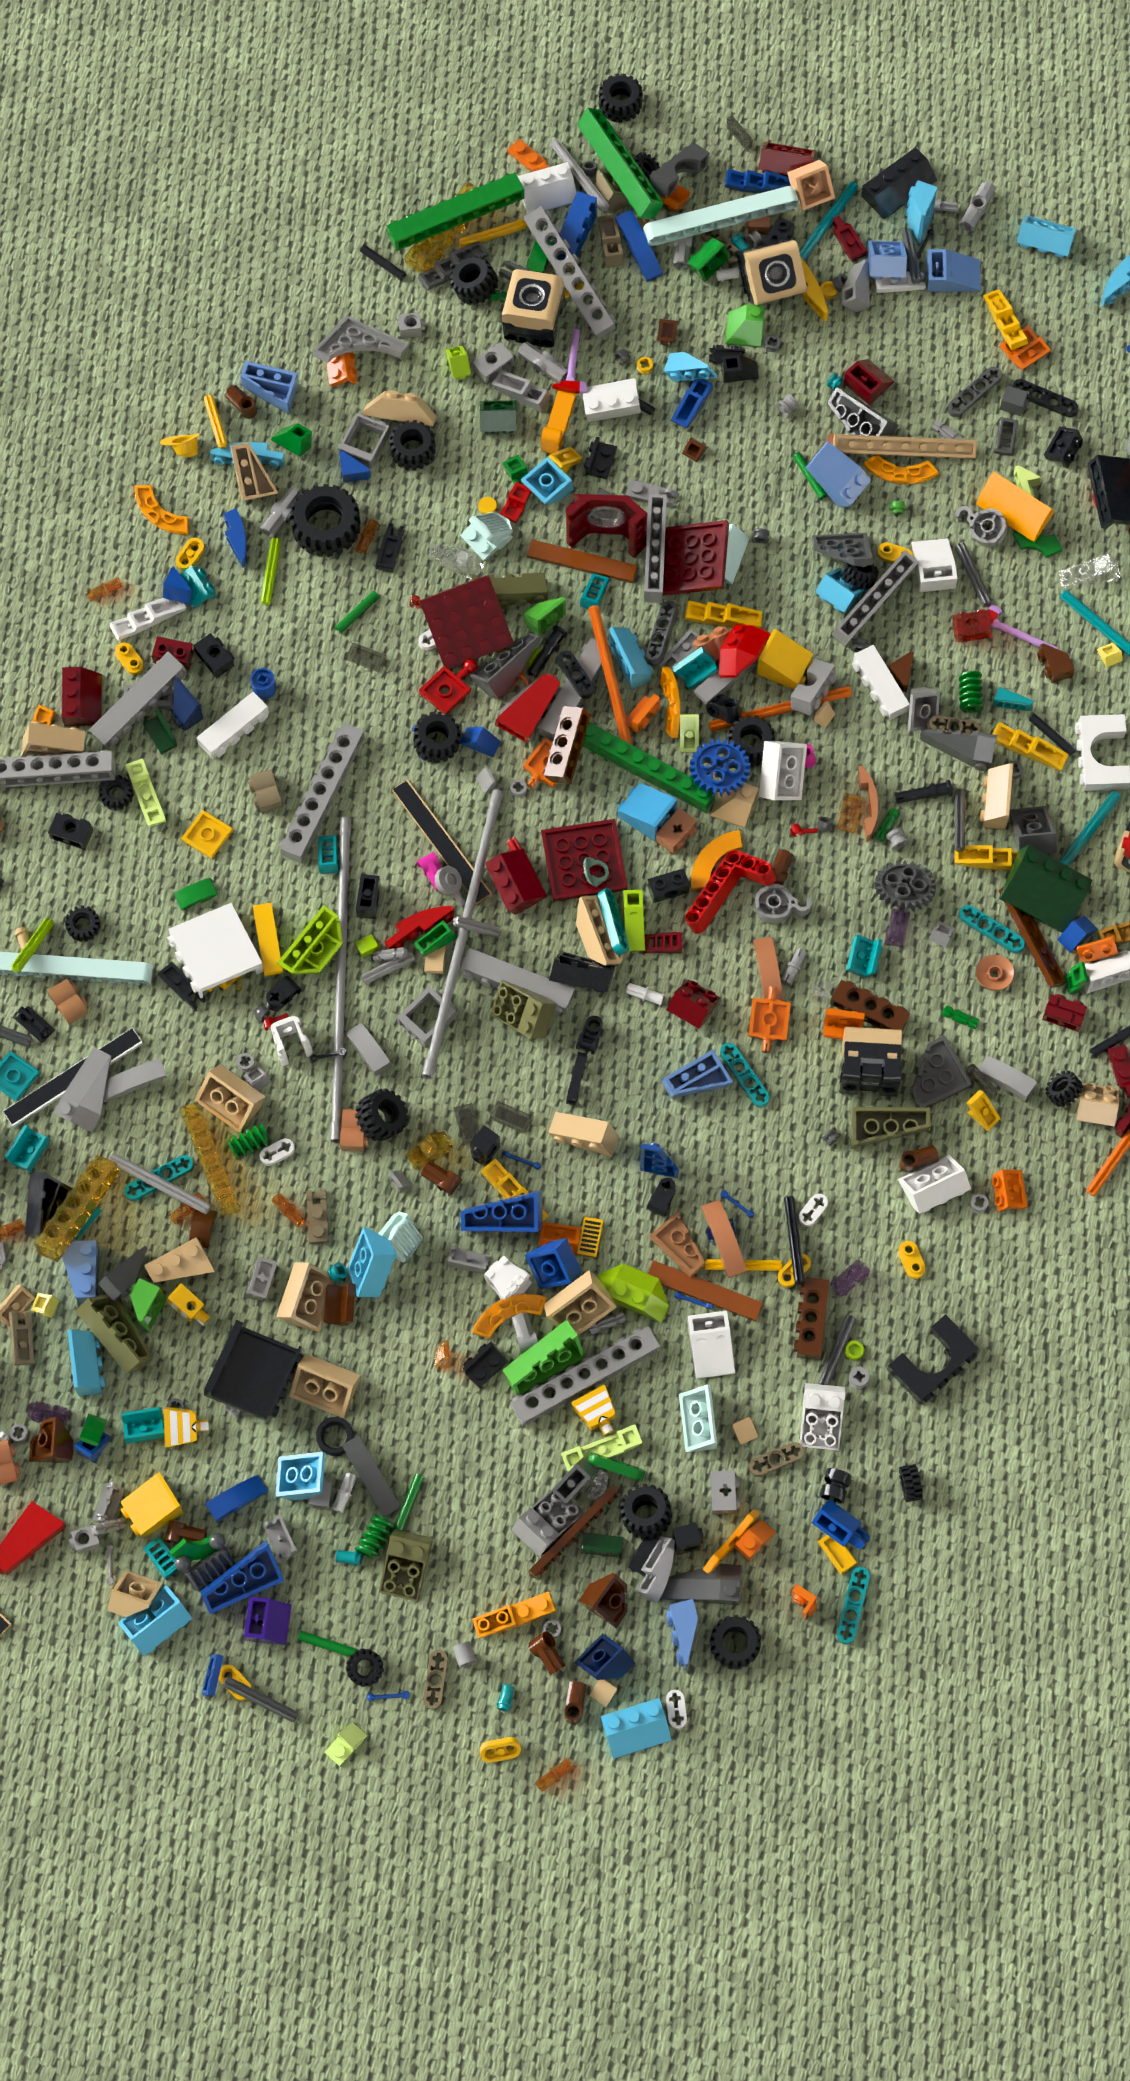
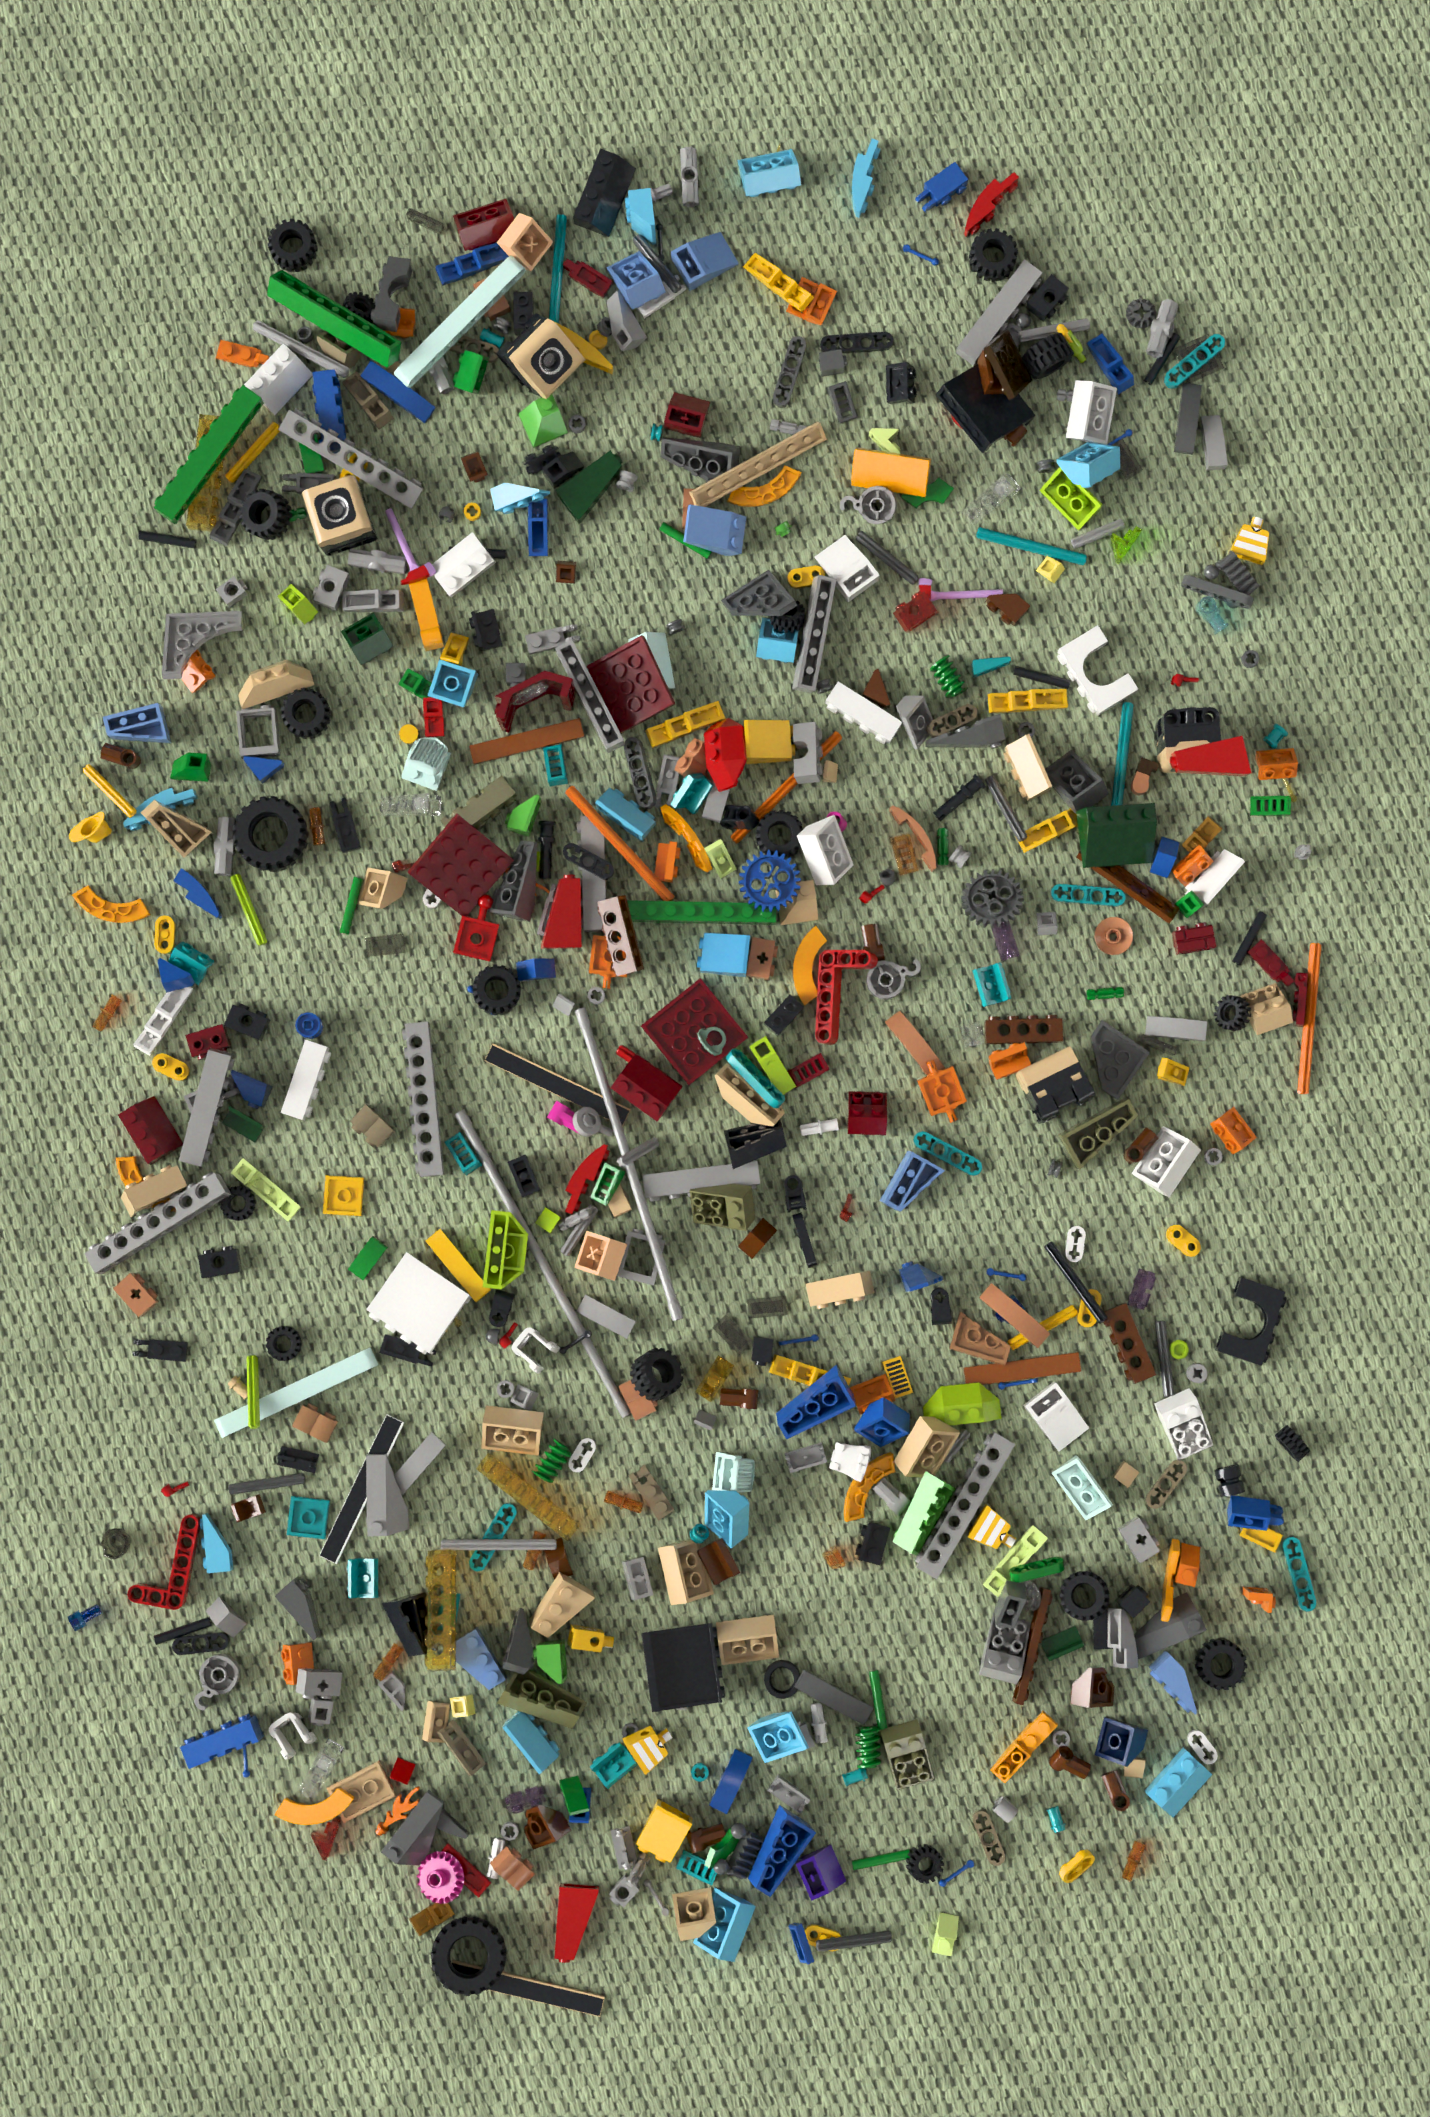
camera: 30 degrees left, 15 degrees up
(210, 1481) = (700, 1766): none -> teal bush
(391, 609) = (381, 888): none -> tan slope
(393, 993) = (600, 1255): none -> light nougat brick
(536, 1055) = (757, 1238): none -> reddish brown slope
(625, 1075) = (845, 1214): none -> clear red hand
(726, 274) = (495, 375): white pin -> none
(752, 393) = (589, 485): none -> dark green slope
(794, 967) = (935, 1028): light grey pin -> none
(1095, 856) = (1140, 780): none -> leg

